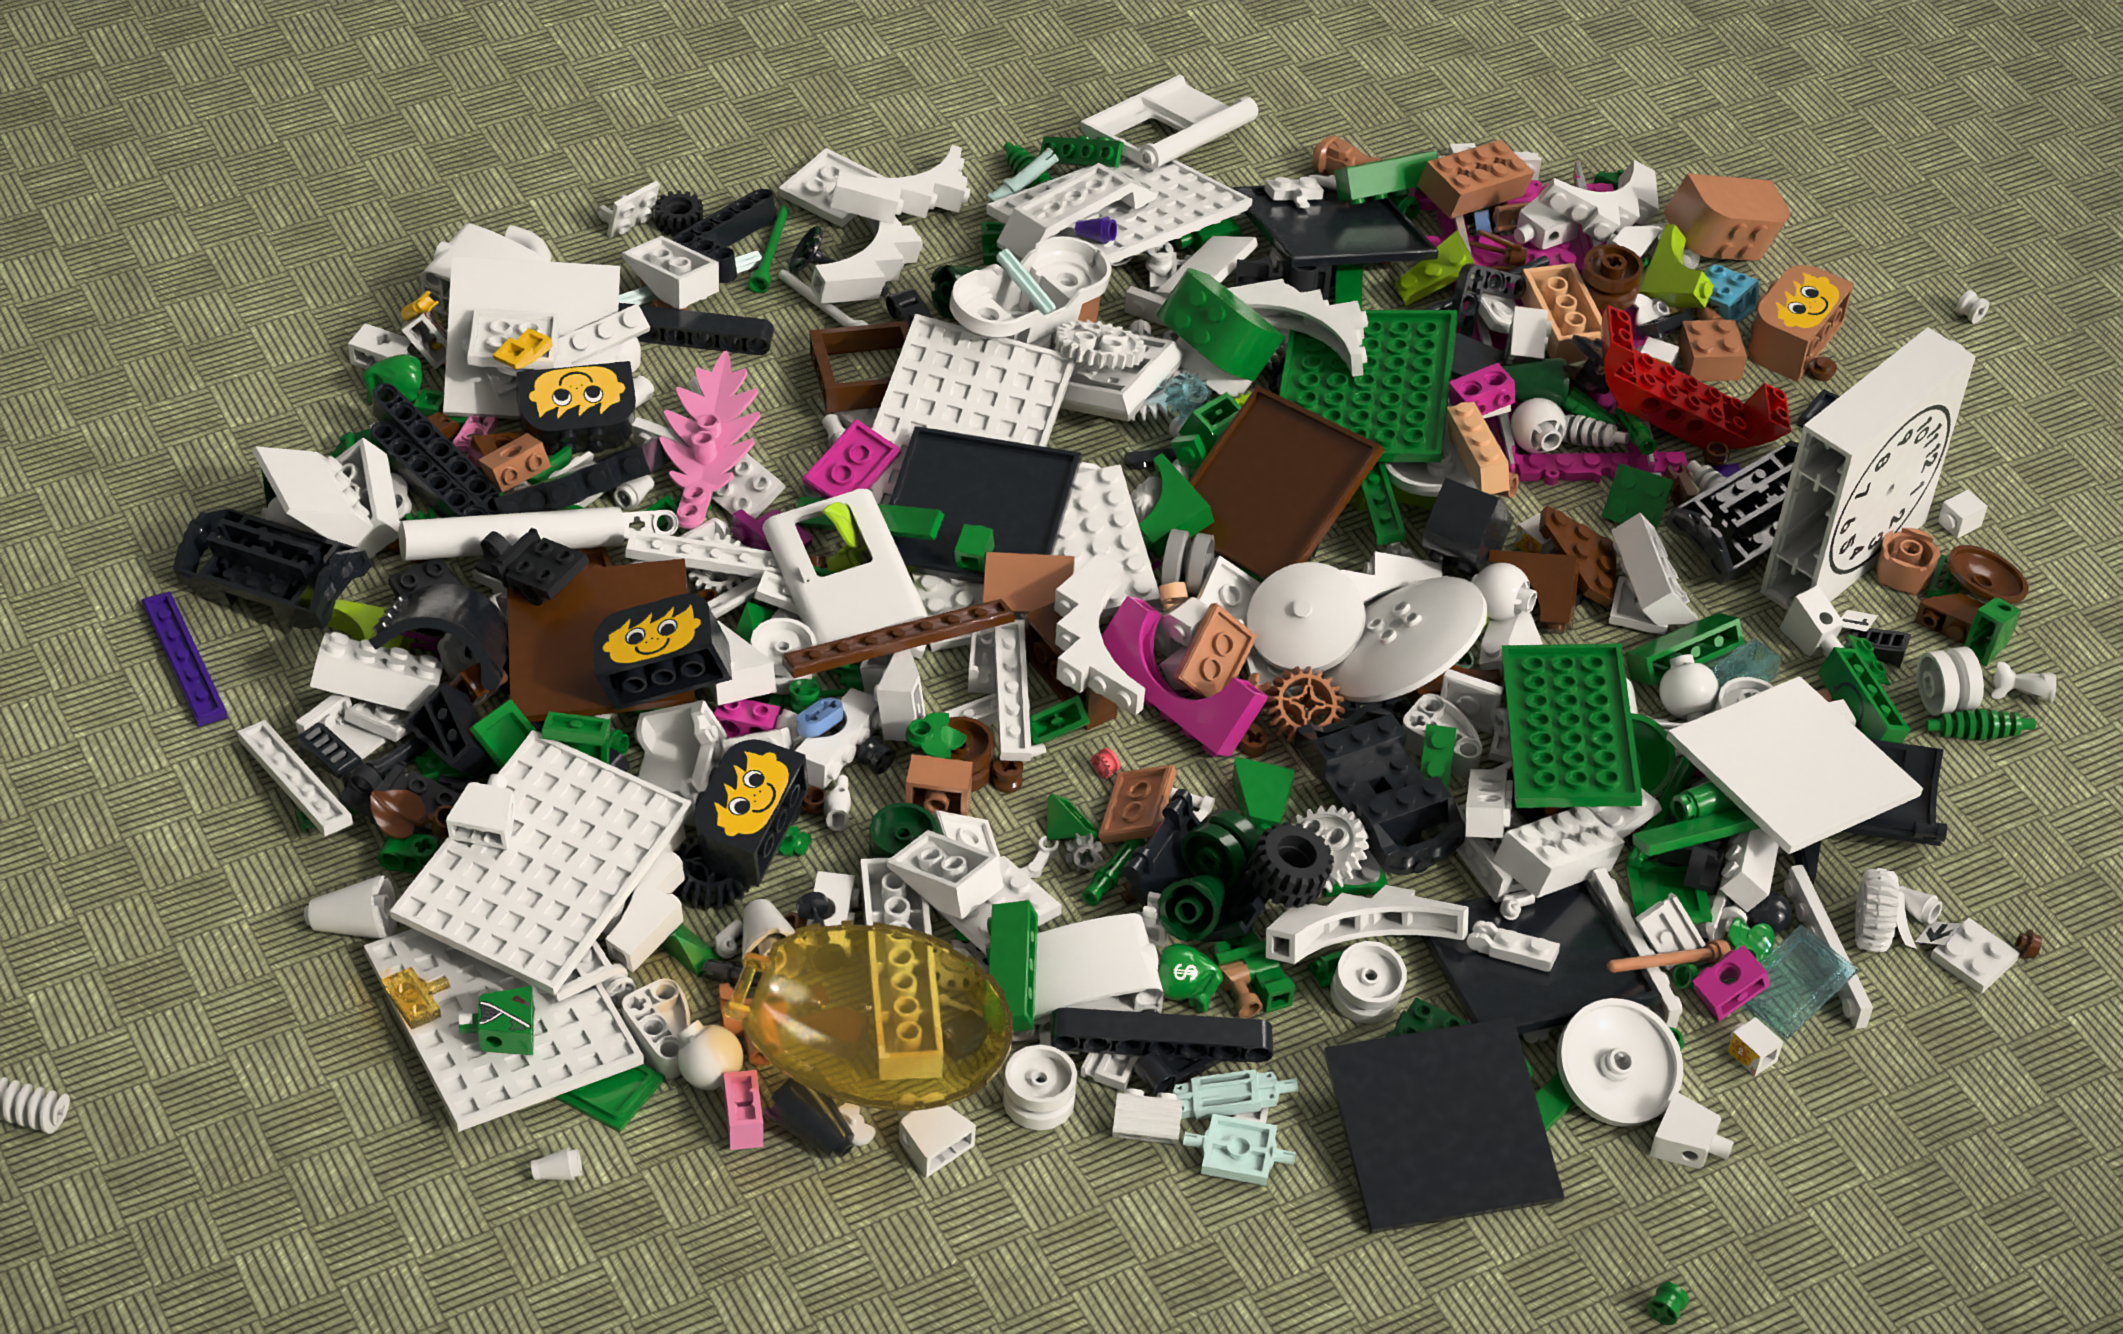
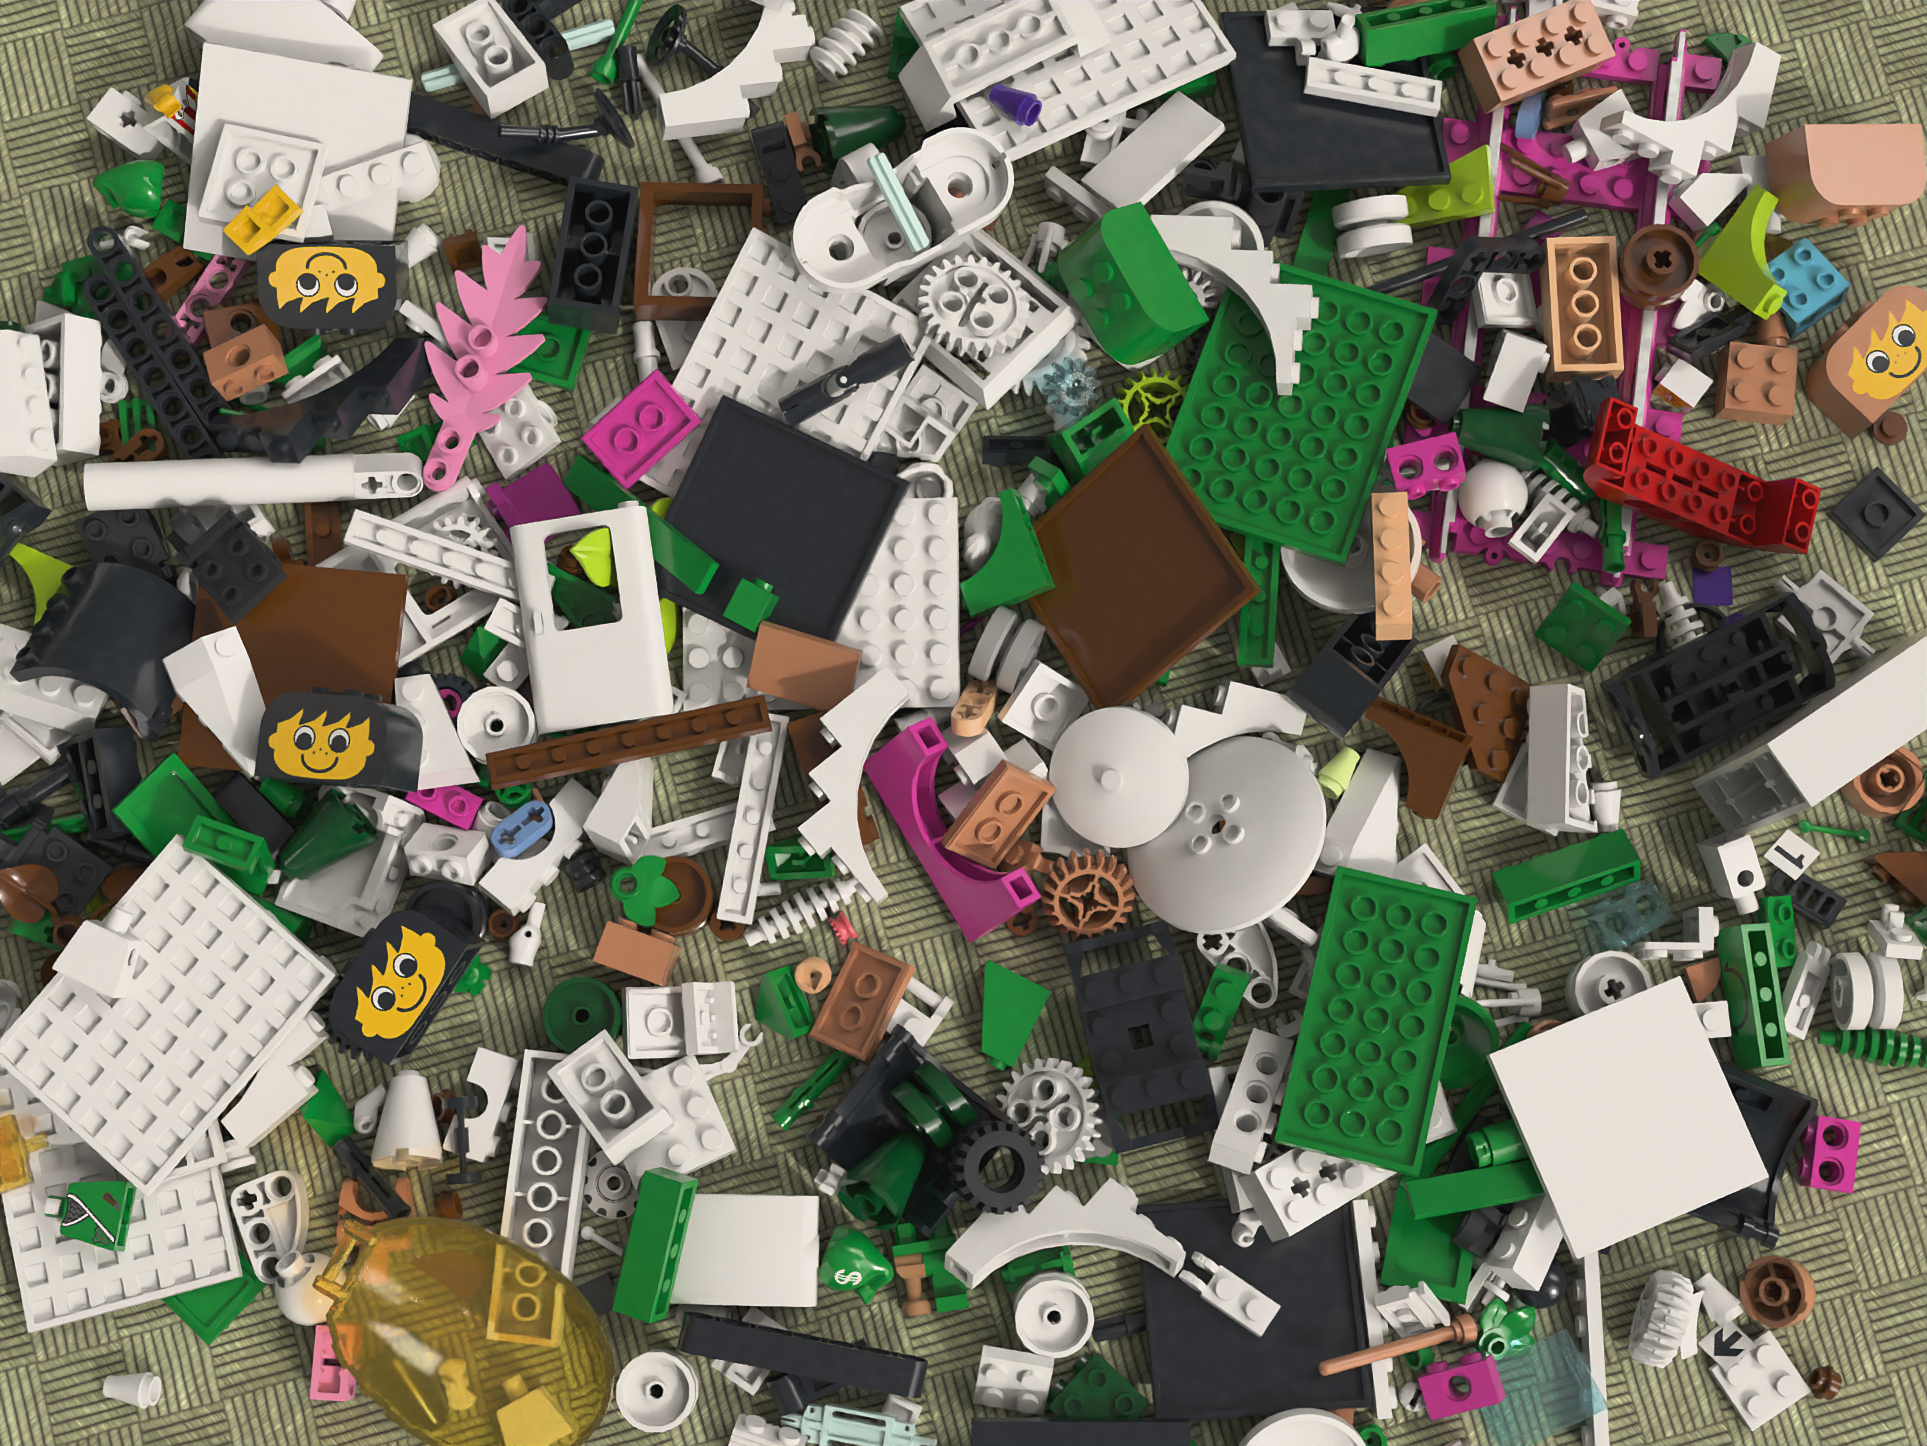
camera: 15 degrees right, 35 degrees up
(549, 641) = (222, 690): none -> white wedge
(655, 744) = (327, 837): none -> dark green cone
(668, 393) = (463, 250): none -> reddish brown tile
(770, 440) = (558, 358): none -> green plate
(774, 300) = (607, 123): none -> black dish
(781, 281) = (629, 80): none -> black axle
(786, 367) = (593, 255): none -> black brick
(929, 298) = (799, 136): none -> nougat plate
(946, 242) = (843, 43): none -> white piece
(1012, 832) = (710, 1018): none -> white bracket
(1021, 392) = (867, 368): none -> black piece
(1069, 756) = (804, 910): none -> white piece
(1083, 437) = (926, 417): none -> white slope
(1087, 859) = (784, 1061): light grey gear -> none
(1089, 797) = (812, 975): none -> light nougat tile
(1328, 187) = (1342, 43): none -> white piece
(1347, 1023) = (1013, 1380): none -> white plate
(1360, 209) = (1372, 86): none -> white plate
(1388, 285) = (1372, 226): none -> white wheel
(1432, 992) = (1119, 1326): none -> black axle
(1505, 591) = (1367, 766): white brick -> none
(1583, 438) = (1541, 528): none -> white slope
(1688, 688) = (1549, 944): white brick -> none
(1693, 1016) = (1406, 1394): none -> white hinge
(1699, 601) = (1606, 805): none -> white cone
(1800, 663) = (1698, 937): none -> white bracket
(1903, 693) = (1805, 988): none -> white hinge
(1905, 605) = (1860, 835): none -> green hinge
(1960, 638) = (1893, 934): none -> white plate
(1964, 880) = (1777, 1291): none -> nougat cylinder
(1967, 796) = (1840, 1155): none -> dark pink brick

